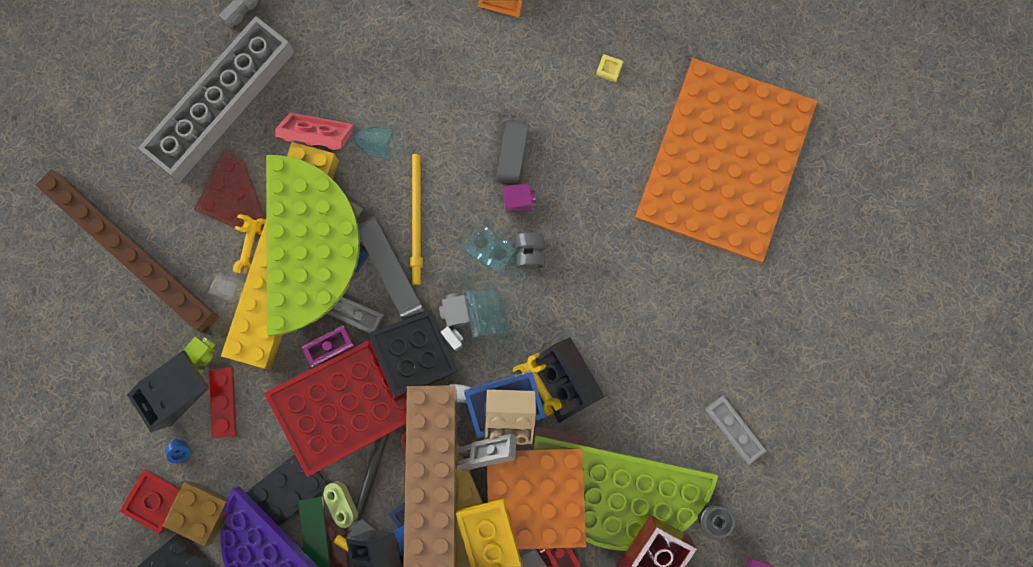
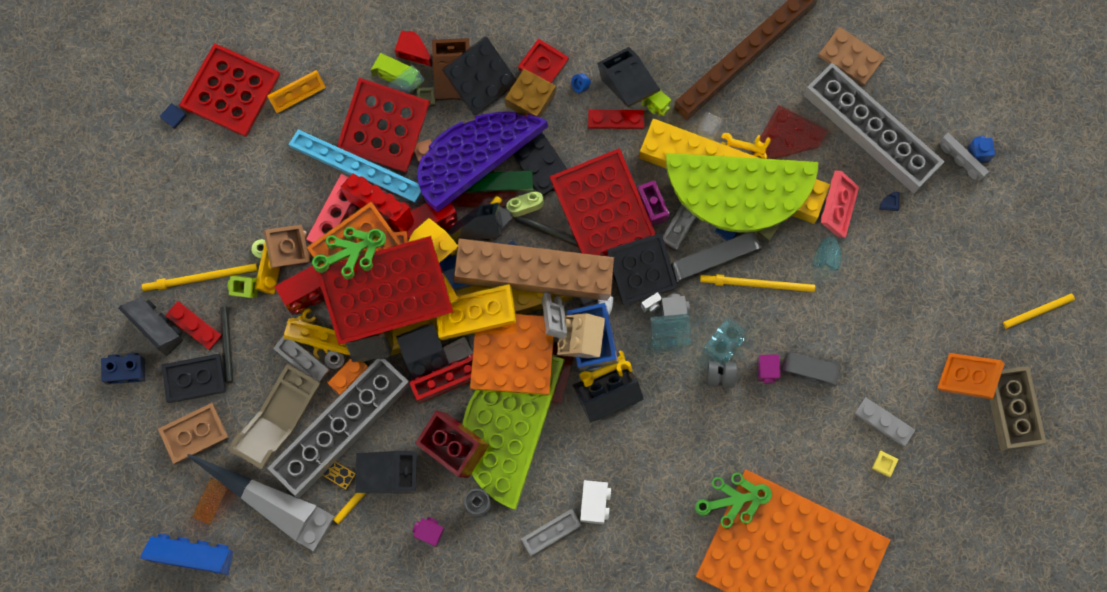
camera: 90 degrees right, 5 degrees down
(127, 130) = (851, 56): none -> medium nougat plate
(306, 76) = (890, 202): none -> dark blue tile
(562, 71) = (884, 421): none -> light grey plate
(673, 222) = (737, 500): none -> bright green plant
(696, 382) = (594, 502): none -> white brick

